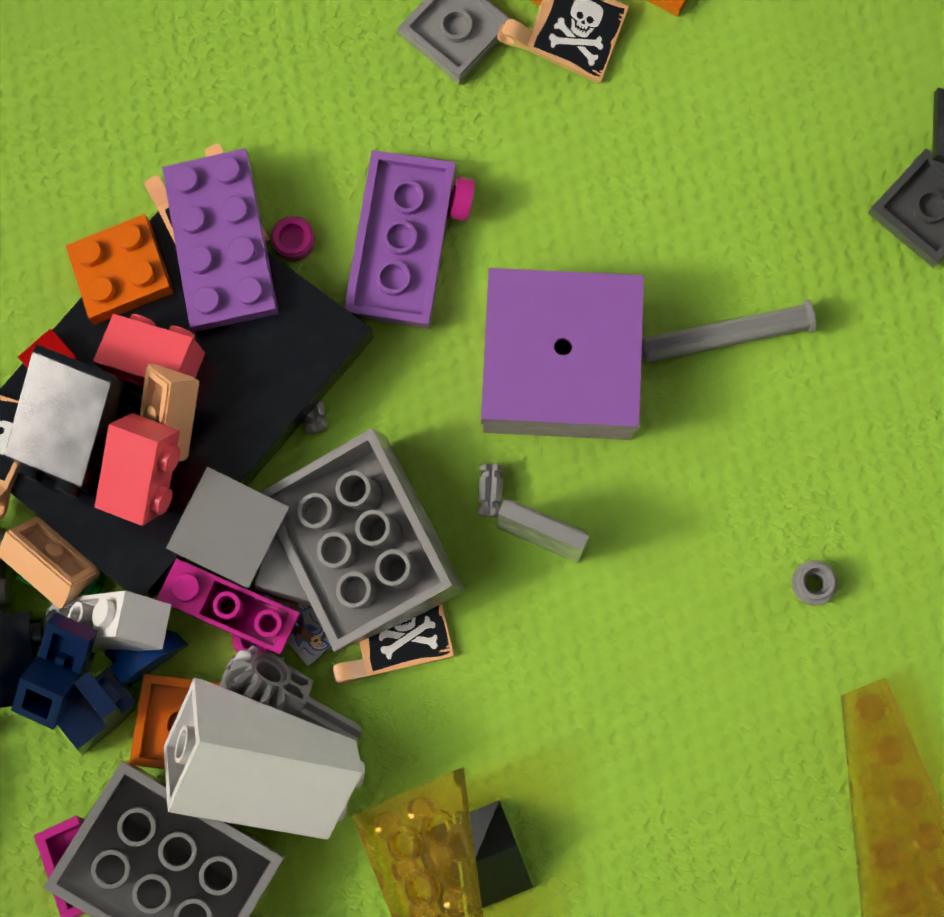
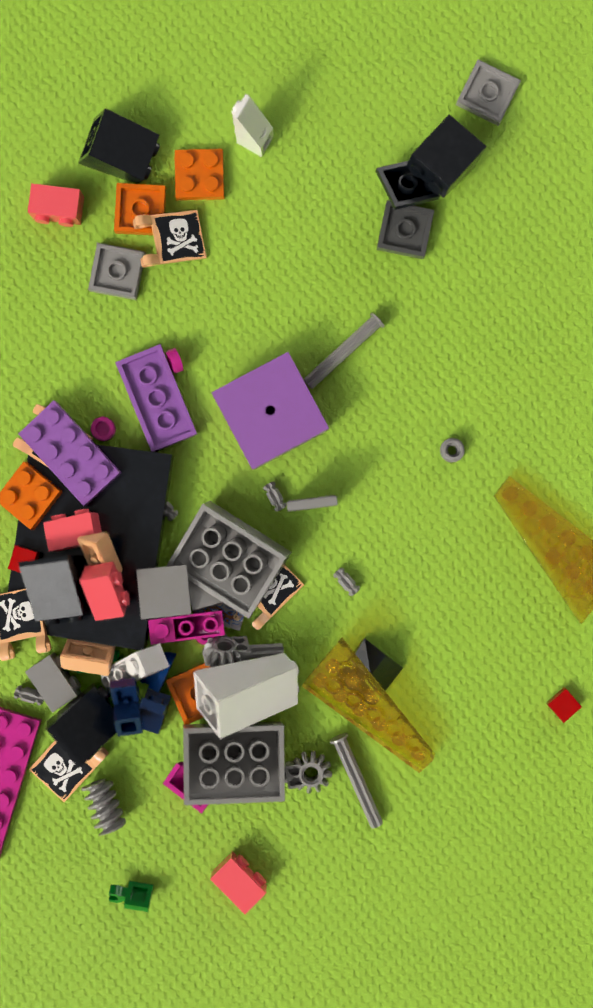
camera: 35 degrees left, 10 degrees up
(523, 691) = (346, 581): none -> light grey piece

